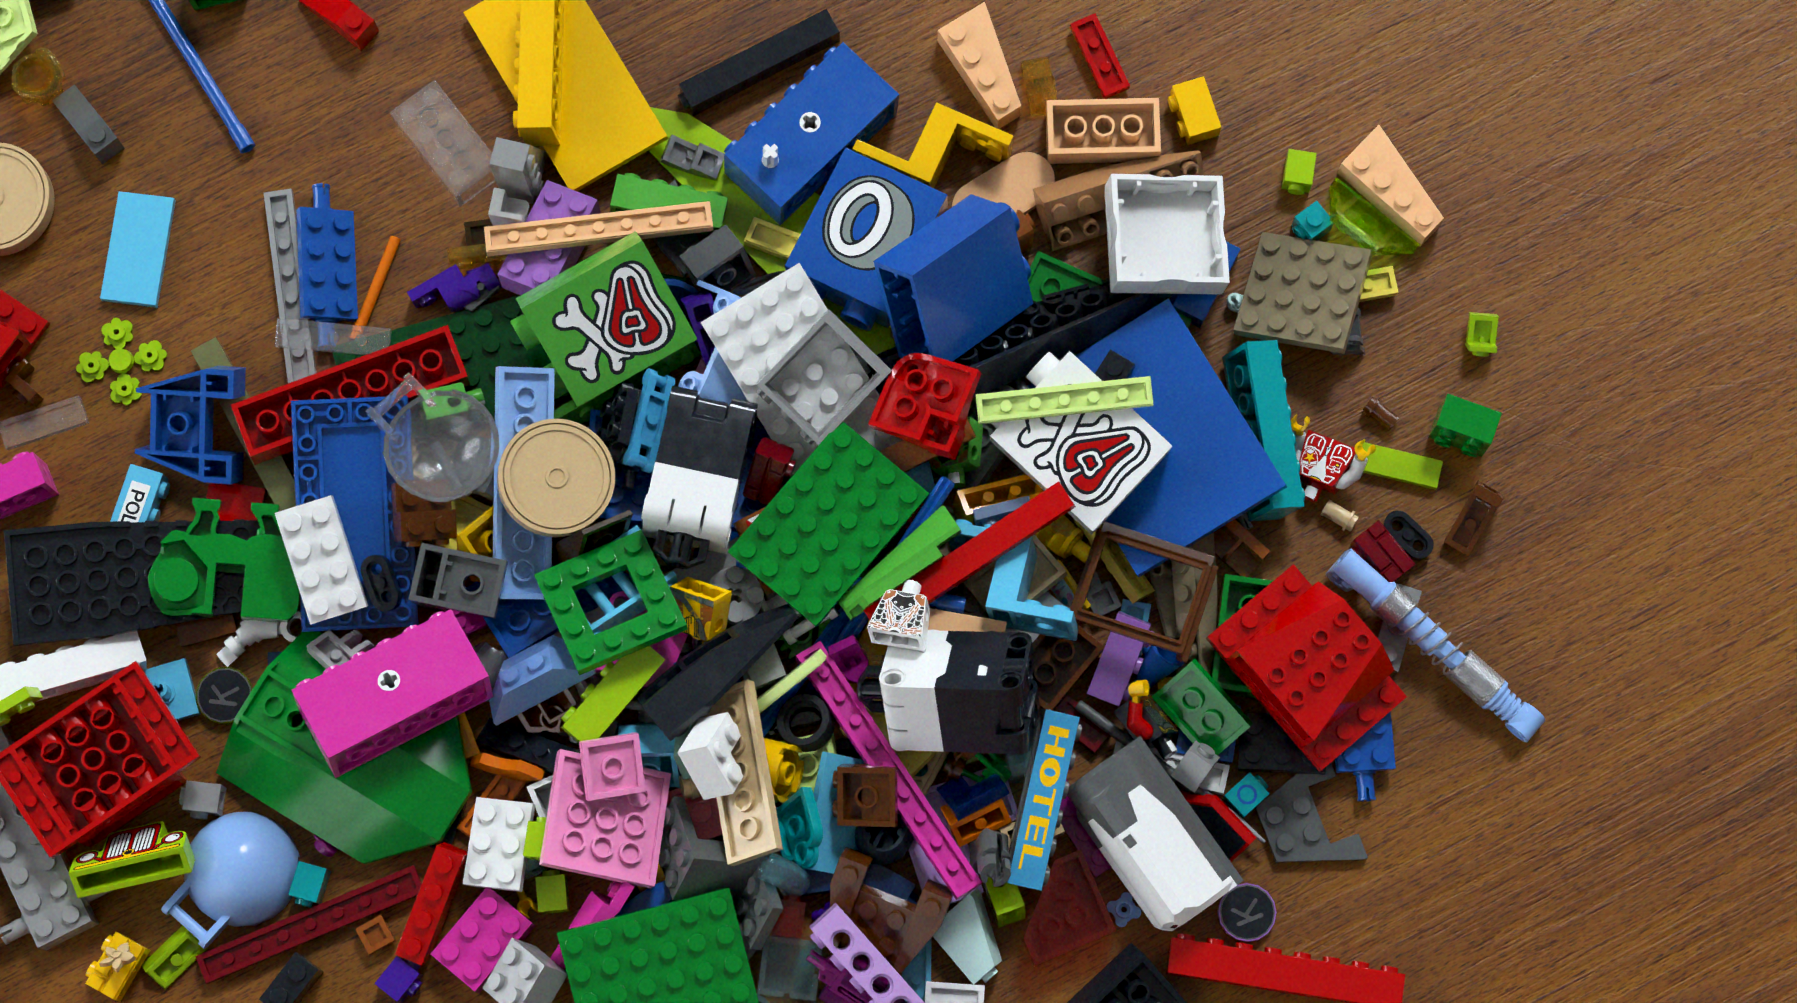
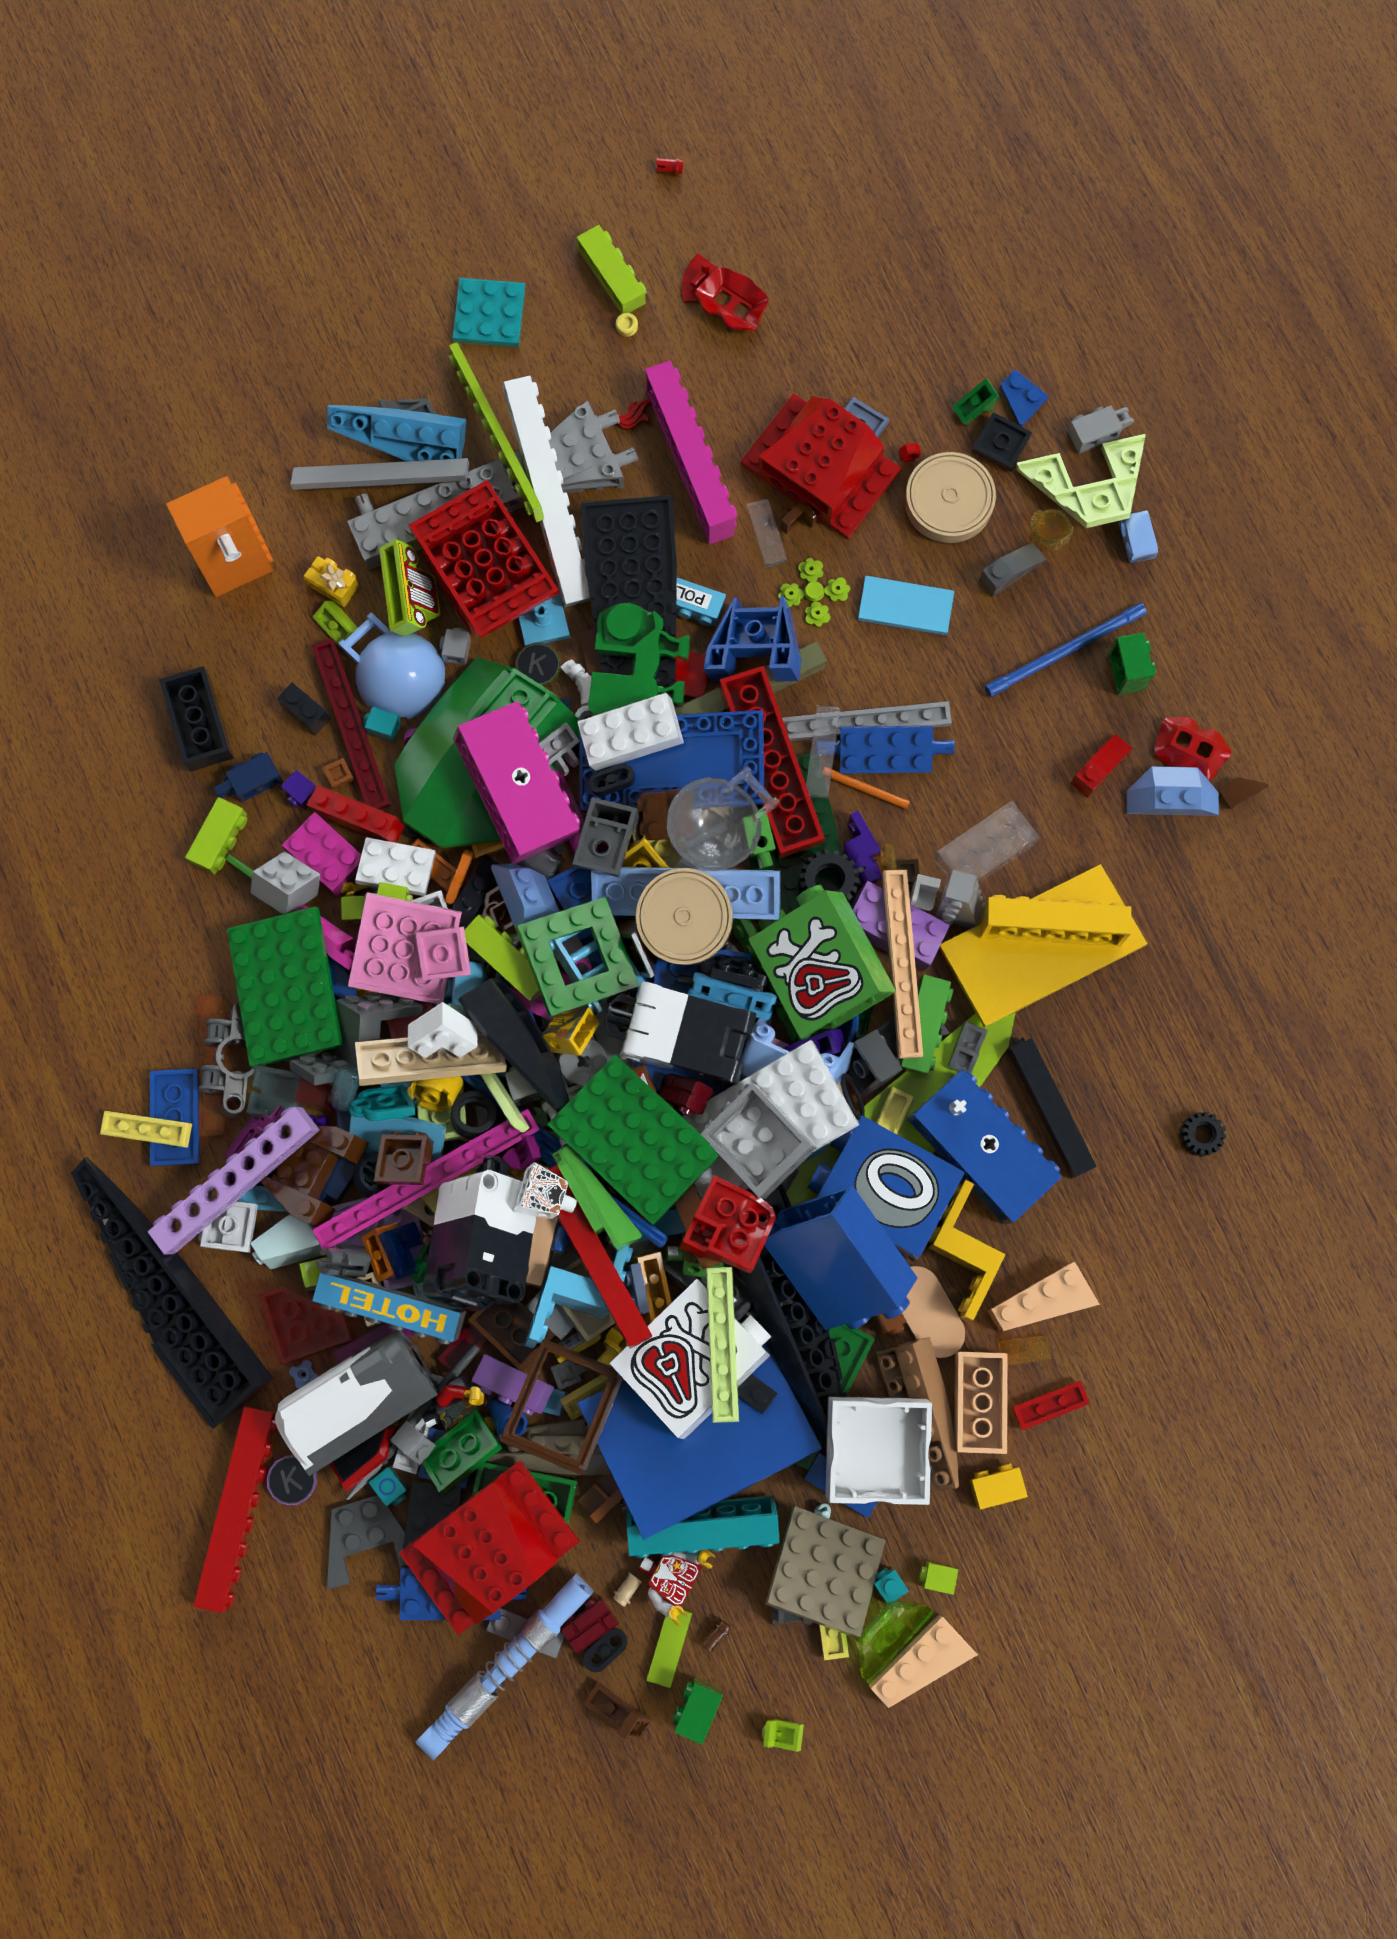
camera: 90 degrees right, 0 degrees up
(479, 308) = (830, 862): none -> black tyre

